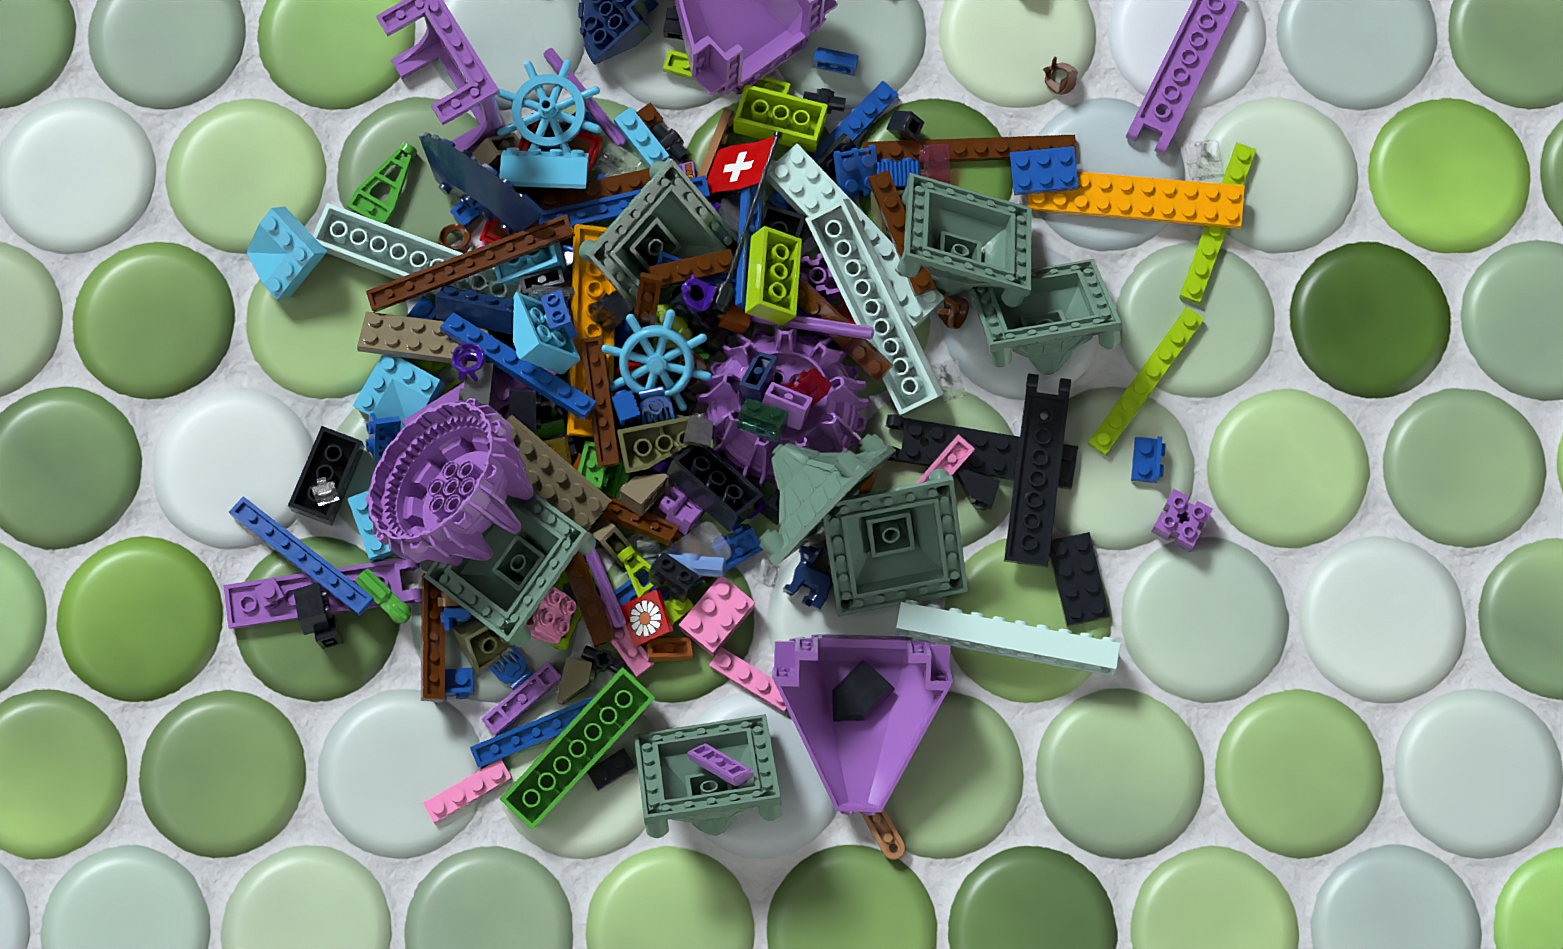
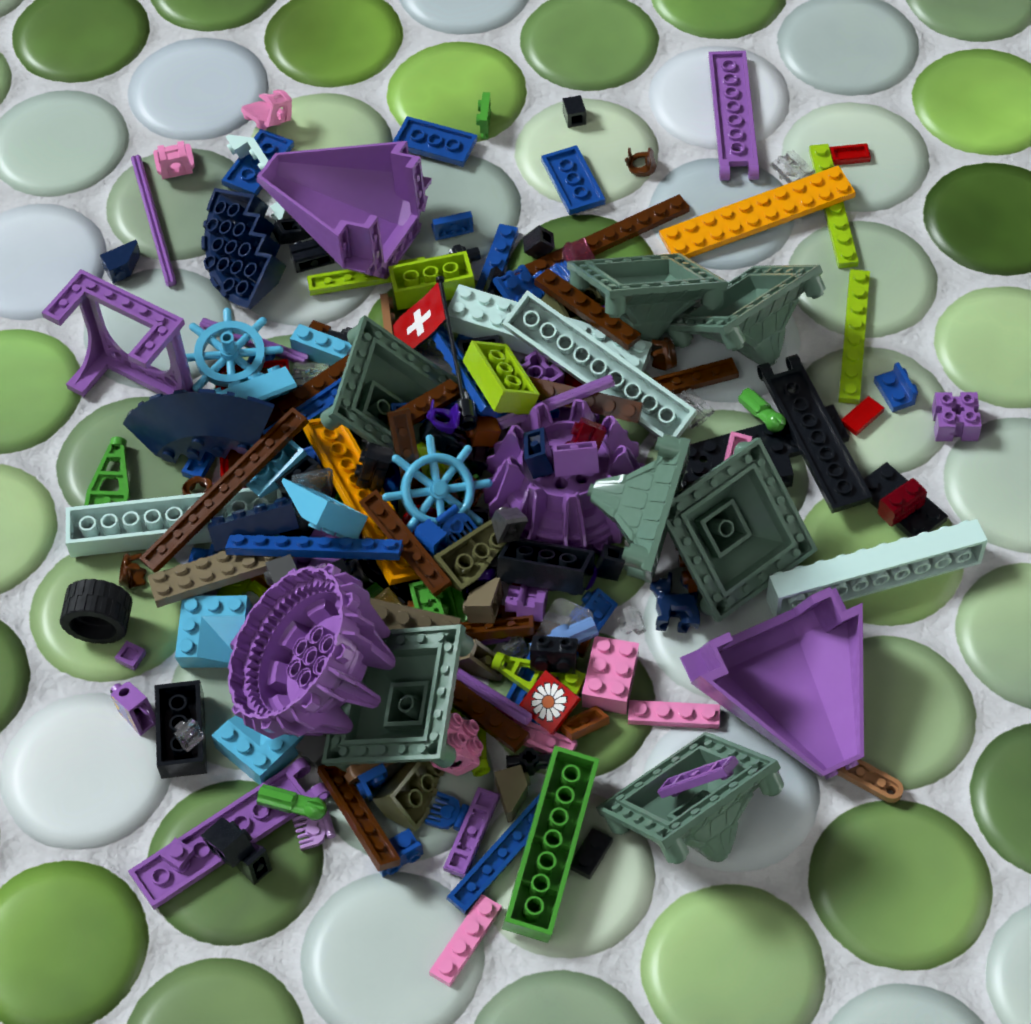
camera: 25 degrees left, 20 degrees down
(283, 252) = (43, 564): medium azure slope -> none
(296, 431) = (128, 698): none -> medium lavender torso
(301, 556) = (192, 806): blue plate -> none
(305, 326) = (96, 611): none -> black tyre
(319, 378) = (130, 655): none -> medium lavender plate
(356, 294) = (131, 573): none -> reddish brown piece
(381, 433) = (214, 669): blue bracket -> none
(396, 630) = (315, 829): none -> lavender piece
(468, 352) = (266, 552): dark purple piece -> none
(559, 313) = (330, 487): blue bracket -> none
(762, 420) = (562, 475): clear green brick -> none
(859, 694) = (778, 675): black tile -> none
(956, 349) = (699, 376): none -> reddish brown plate
(982, 64) = (573, 180): none -> blue plate
(1006, 421) = (761, 409): none -> bright green piece
(1044, 170) = (672, 224): blue plate -> none
(1070, 585) = (902, 502): none -> dark red brick
(1098, 471) = (862, 415): none -> red tile
(1271, 171) = (850, 154): none -> red tile

